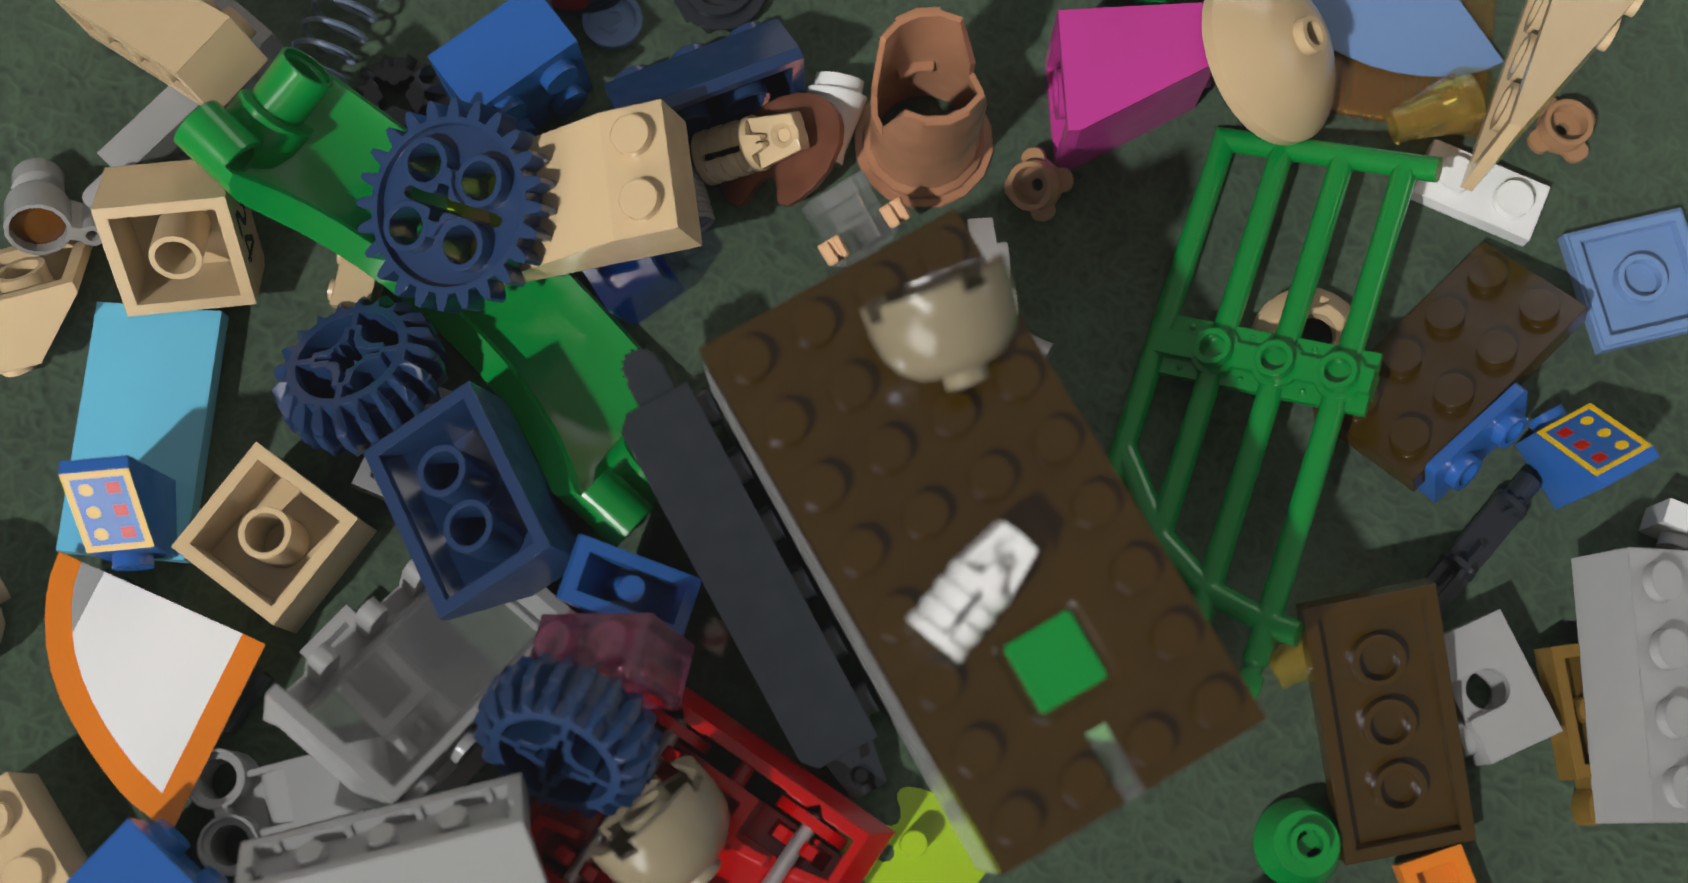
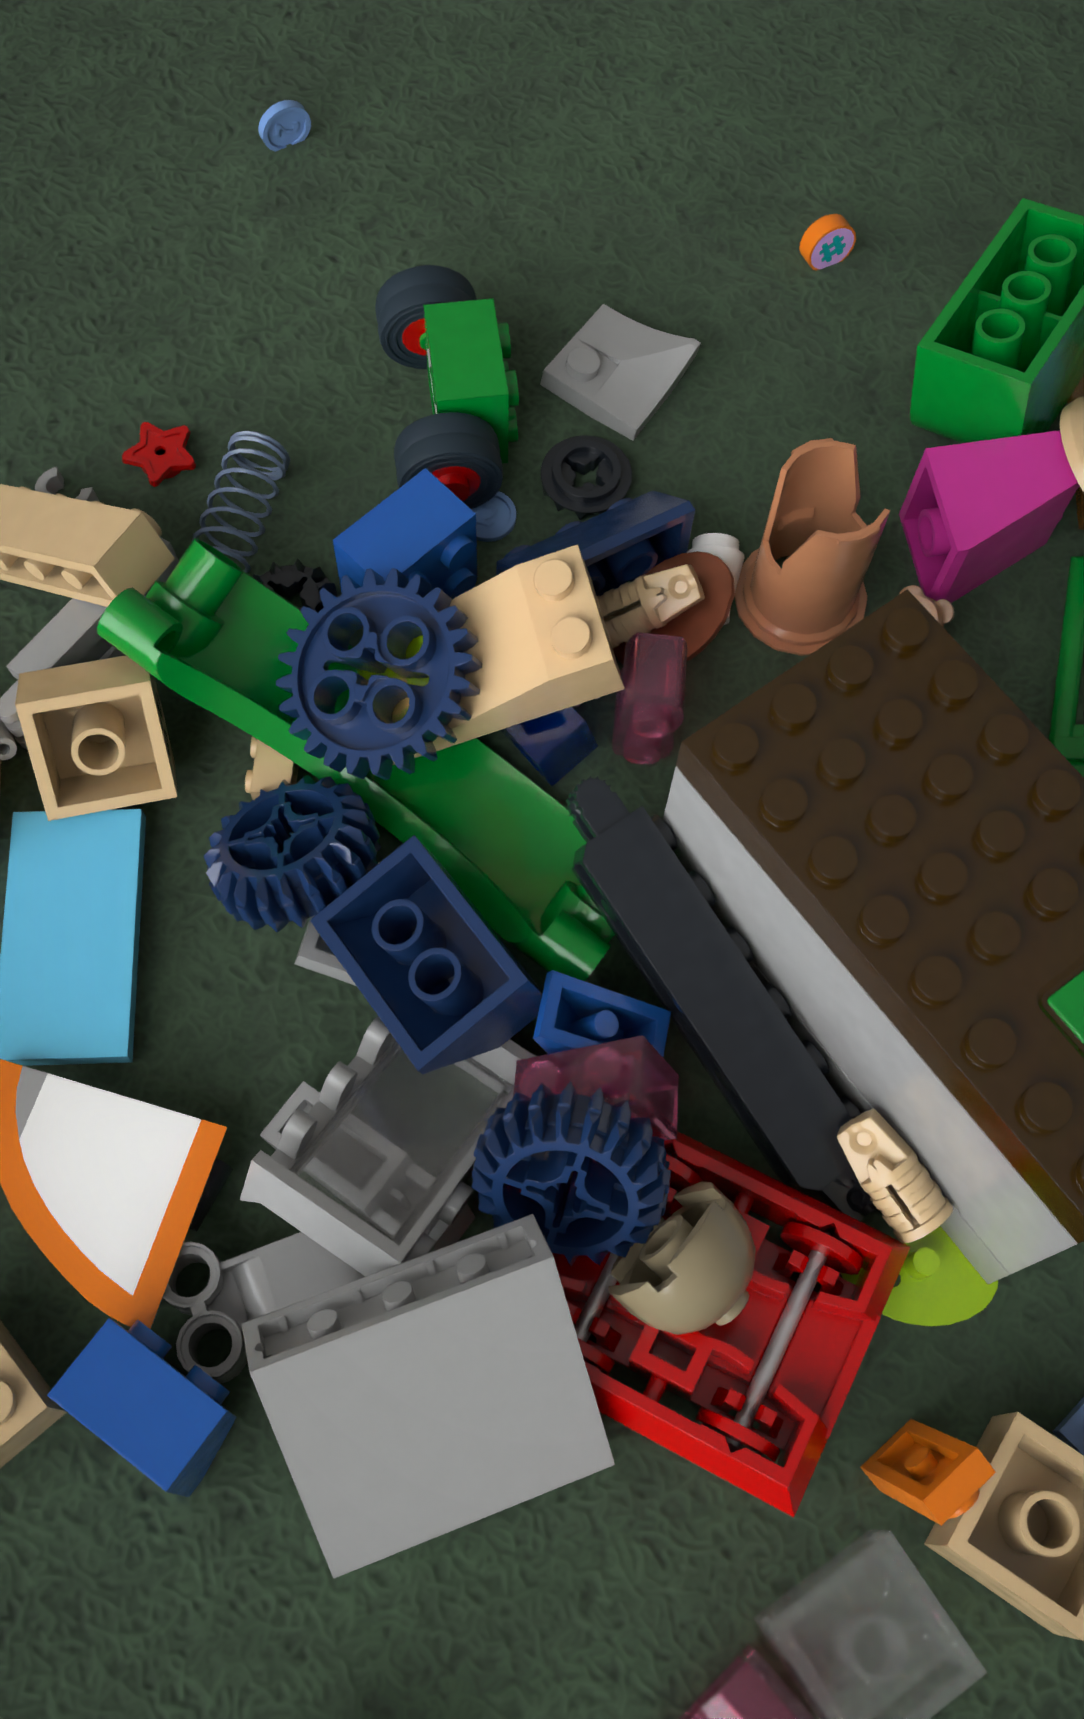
camera: 10 degrees left, 10 degrees down
(122, 509) = (65, 1001): blue slope -> none
(274, 539) = (222, 1021): tan brick -> none
(735, 250) = (652, 697): none -> clear pink brick
(853, 221) = (749, 660): clear piece -> none
(886, 765) = (893, 1177): none -> tan hinge
(946, 323) = (942, 680): dark tan cylinder -> none
(973, 590) = (1016, 939): white hinge -> none

